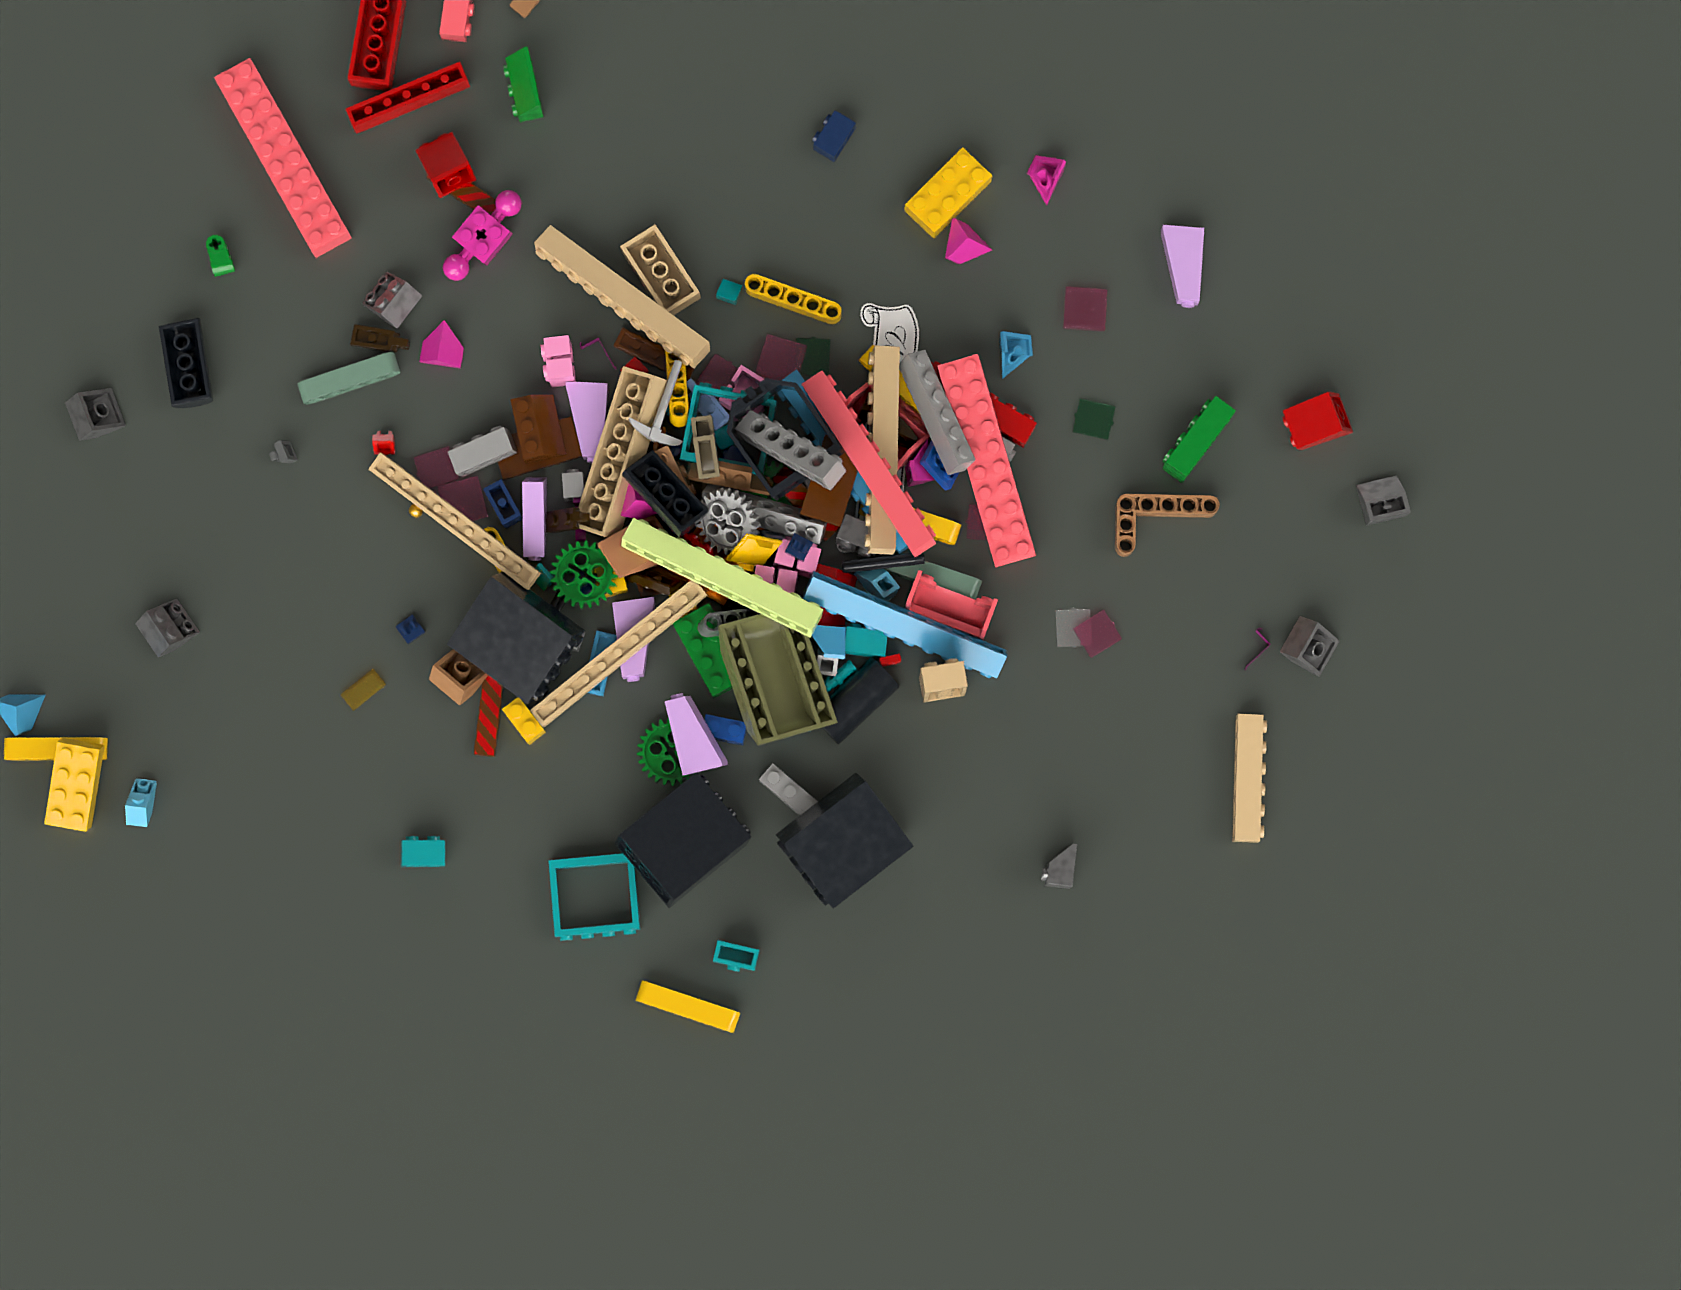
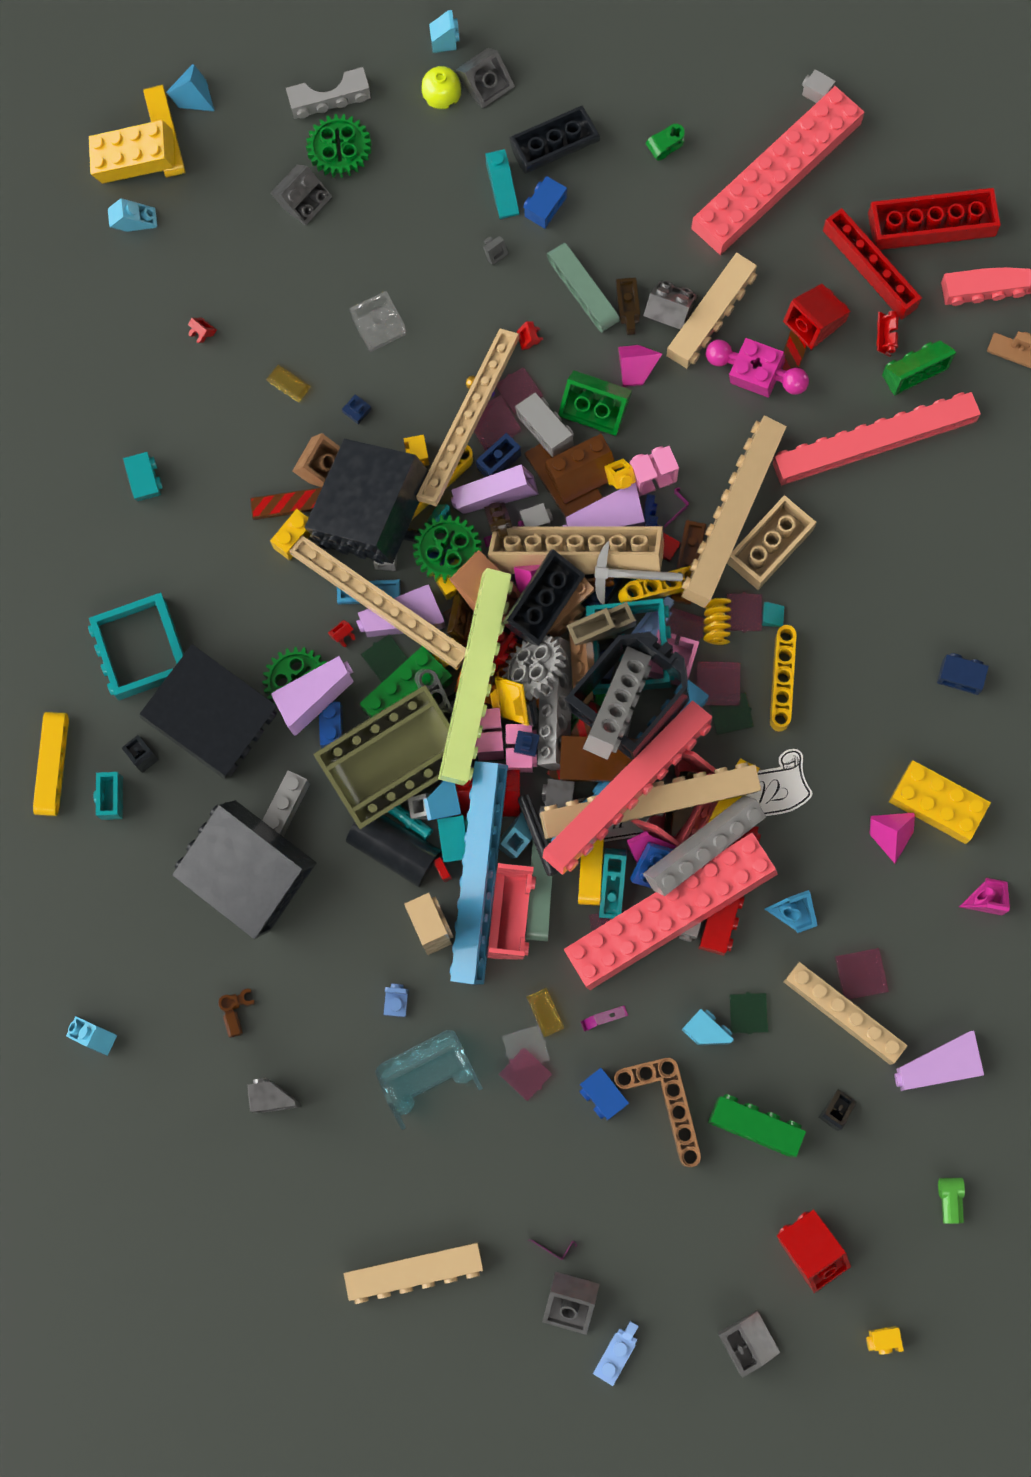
camera: 80 degrees right, 5 degrees down
(36, 441) = (444, 33): none -> medium azure slope
(66, 600) = (307, 101): none -> light grey arch
(92, 460) = (441, 87): none -> neon yellow cylinder
(129, 559) = (357, 143): none -> green gear
(206, 94) = (817, 86): none -> light grey brick
(216, 427) = (502, 183): none -> teal slope
(248, 389) = (545, 201): none -> blue brick
(282, 759) = (201, 327): none -> red tile
(328, 584) = (378, 321): none -> clear brick
(410, 262) = (711, 311): none -> tan brick
(471, 398) = (594, 402): none -> green slope
(472, 102) = (886, 340): none -> red hinge
(472, 580) = (417, 446): none -> yellow brick
(561, 392) = (622, 478): none -> yellow brick
(583, 145) = (876, 438): none -> coral brick
(594, 376) = (650, 509): none -> clear blue slope
(633, 698) = (340, 631): none -> red tile
(670, 663) = (384, 657): none -> clear green piece
(699, 919) = (140, 754): none -> black slope
(718, 317) = (745, 612): none -> clear pink piece
(724, 344) = (715, 621): none -> yellow piece
(944, 506) = (612, 883): none -> teal slope
(959, 1024) = (91, 1035): none -> medium azure slope
(963, 890) = (231, 1019): none -> reddish brown bar
(1000, 734) = (396, 1000): none -> medium blue bracket
(1046, 601) = (545, 1012): none -> clear yellow tile
(1066, 556) = (603, 1017): none -> magenta piece
(1068, 723) = (422, 1070): none -> clear light blue windscreen
(1100, 462) = (706, 1031): none -> medium azure slope
(1117, 333) = (845, 1013): none -> tan brick
(1134, 568) = (603, 1094): none -> blue brick
(1201, 365) = (838, 1110): none -> black slope
(1297, 287) = (951, 1192): none -> bright green piece
(1362, 617) = (616, 1354): none -> light blue hinge
(1408, 382) = (884, 1340): none -> yellow brick

